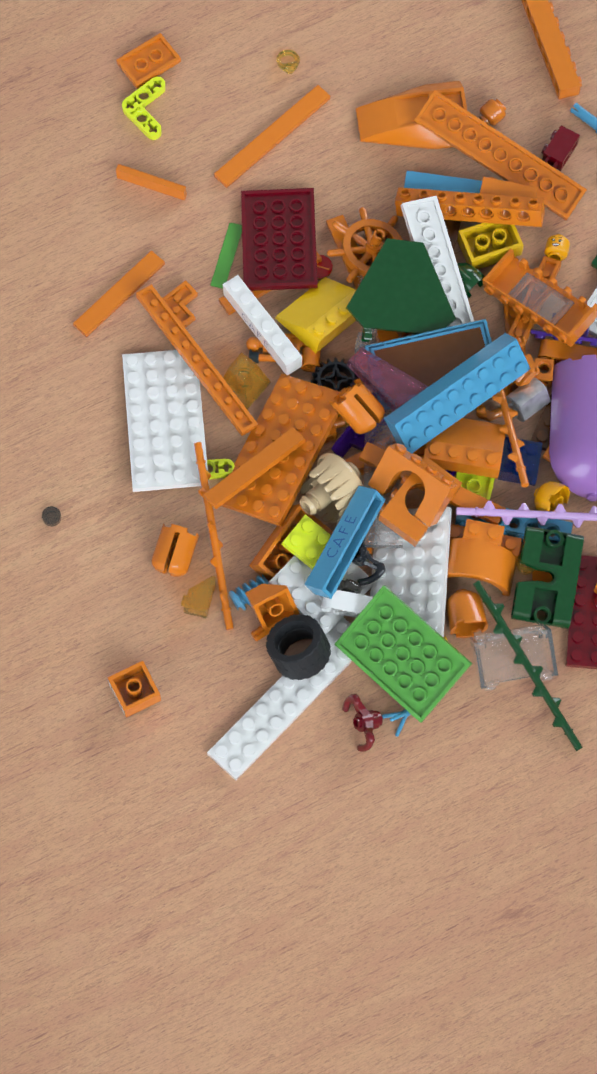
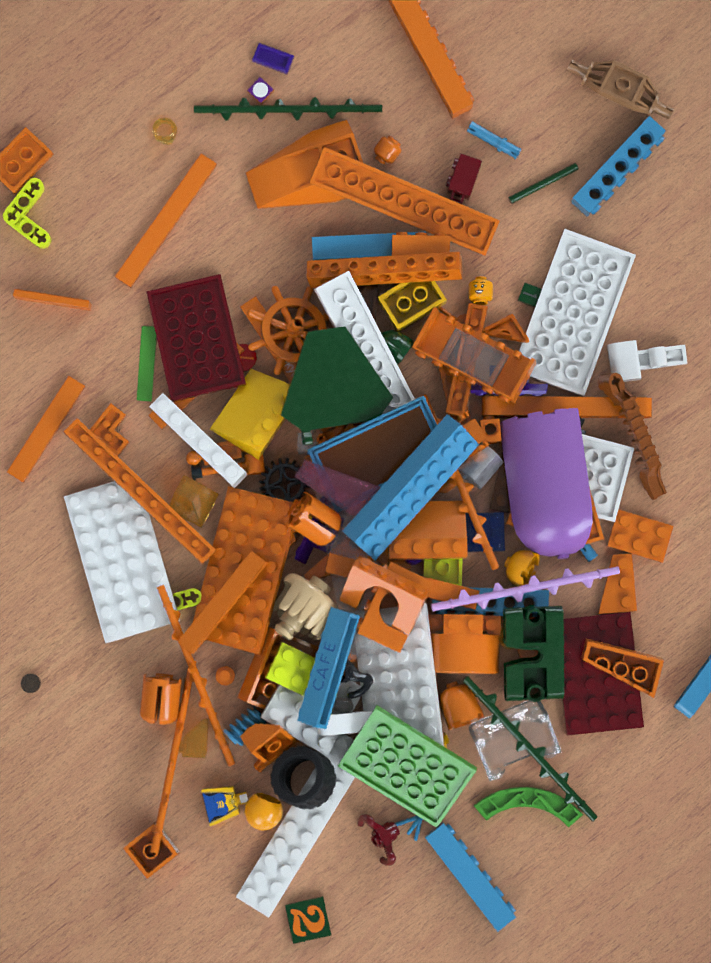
camera: 10 degrees left, 15 degrees up
(145, 667) = (172, 763): none -> orange plant
(213, 661) = (222, 803): none -> torso
(241, 545) = (225, 675): none -> orange plate
(252, 674) = (263, 811): none -> light orange helmet
(274, 789) = (308, 920): none -> tile
(384, 43) = (260, 90): none -> tile
(401, 19) = (273, 58): none -> dark purple tile
(414, 66) = (279, 107): none -> dark green plant
(445, 778) = (470, 877): none -> dark azure brick
(519, 717) = (528, 797): none -> bright green tile
(579, 286) = (508, 329): none -> orange tile

